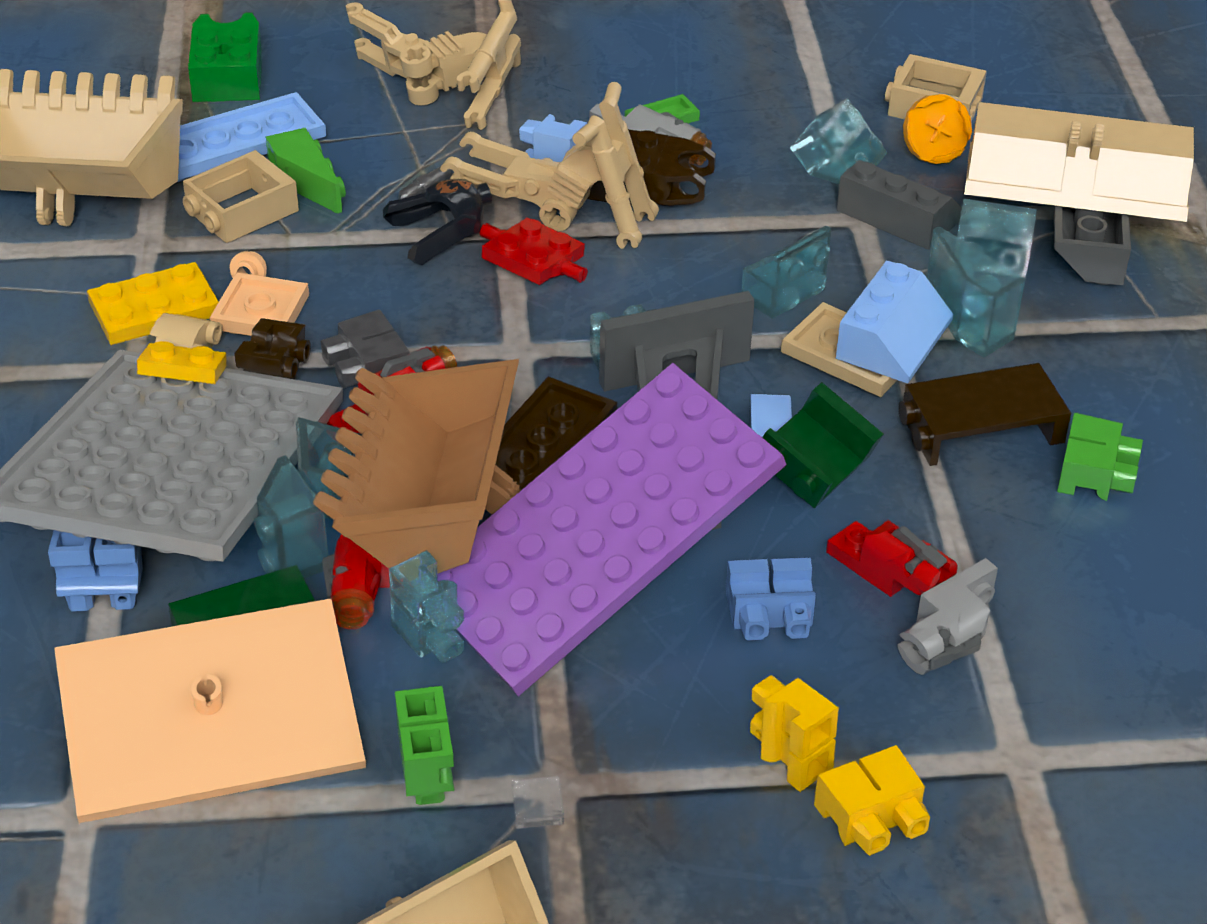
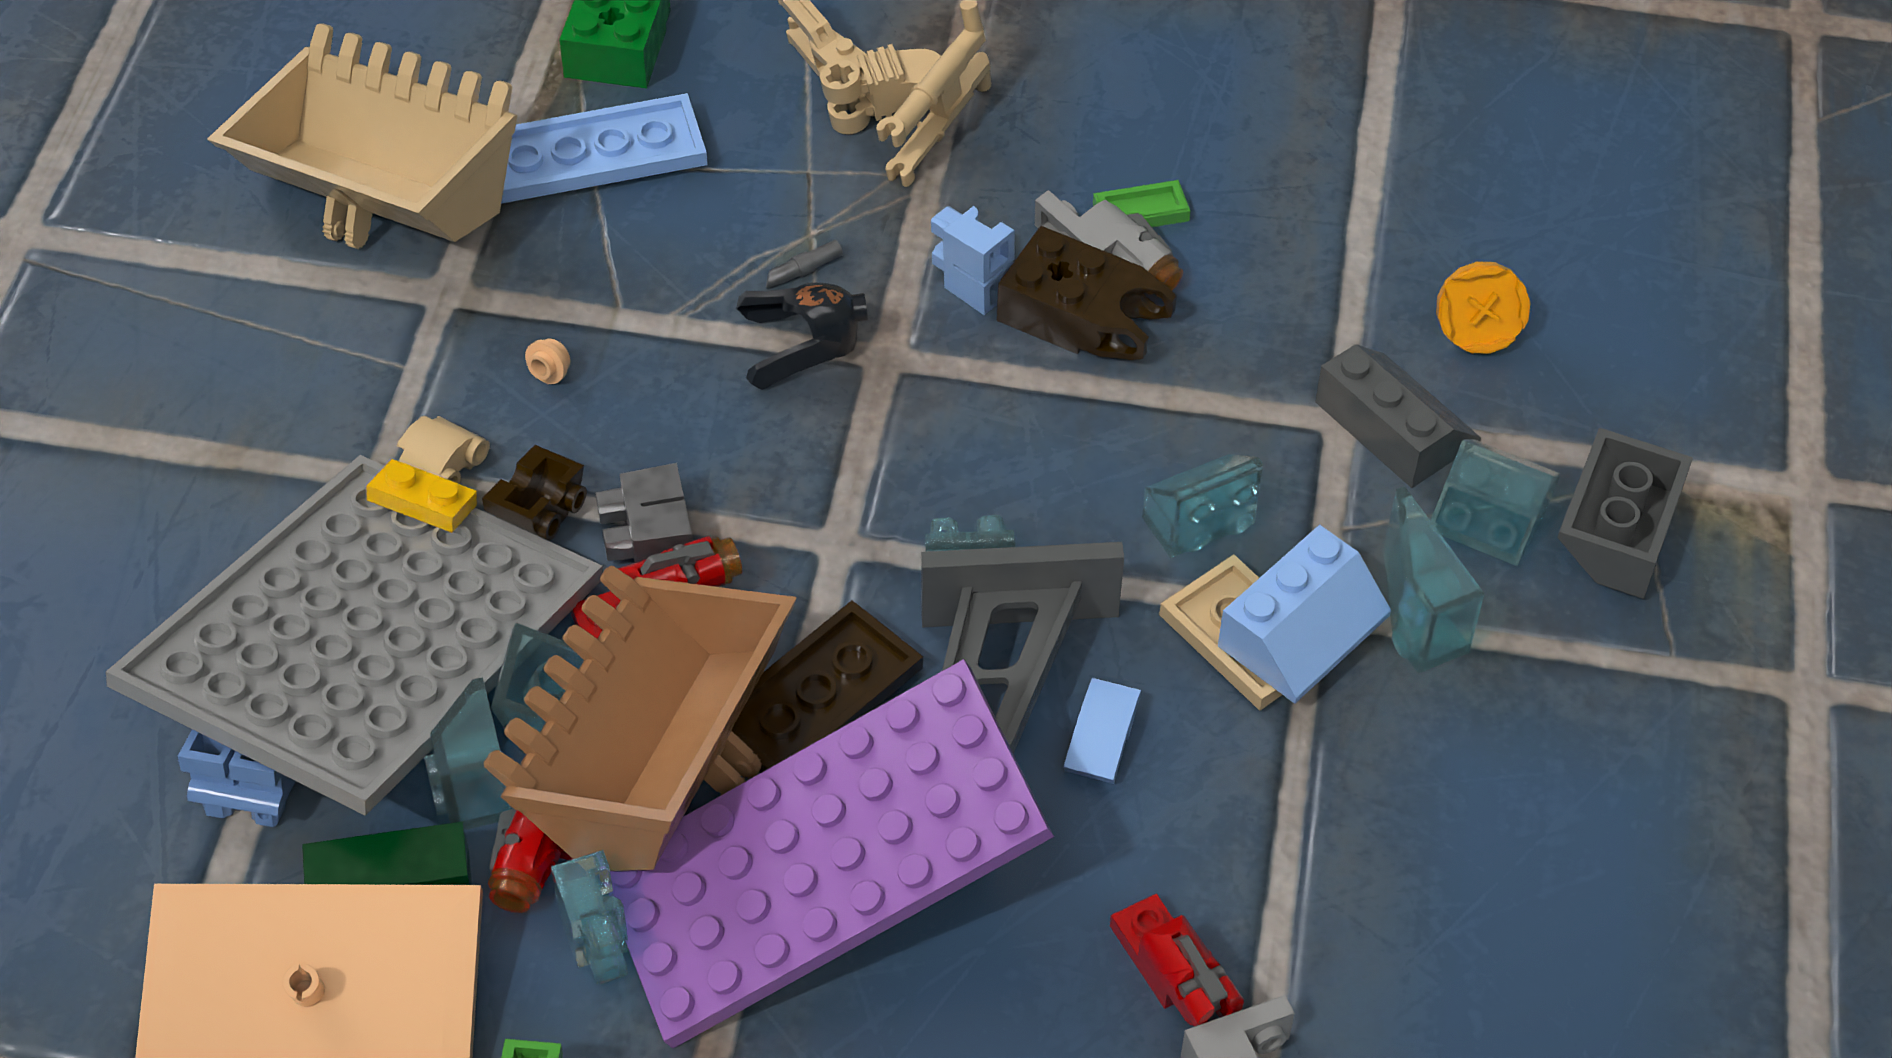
camera: 15 degrees right, 10 degrees up
(133, 305) = (424, 380): yellow plate -> none
(258, 297) = (544, 414): light nougat plate -> none
(274, 200) = (562, 220): tan window -> none
(303, 161) = (657, 214): bright green slope -> none
(533, 251) = (903, 397): red plate -> none
(600, 153) = (970, 307): tan piece -> none
(764, 604) = (987, 992): medium blue hips -> none
(822, 445) = (1143, 778): dark green panel -> none
(837, 142) = (1348, 304): clear light blue slope -> none
(935, 76) = (1554, 227): tan window -> none
(981, 405) = (1377, 760): dark brown panel -> none
(1081, 161) = (1635, 418): piece -> none
(1099, 457) = (1490, 862): bright green hips -> none

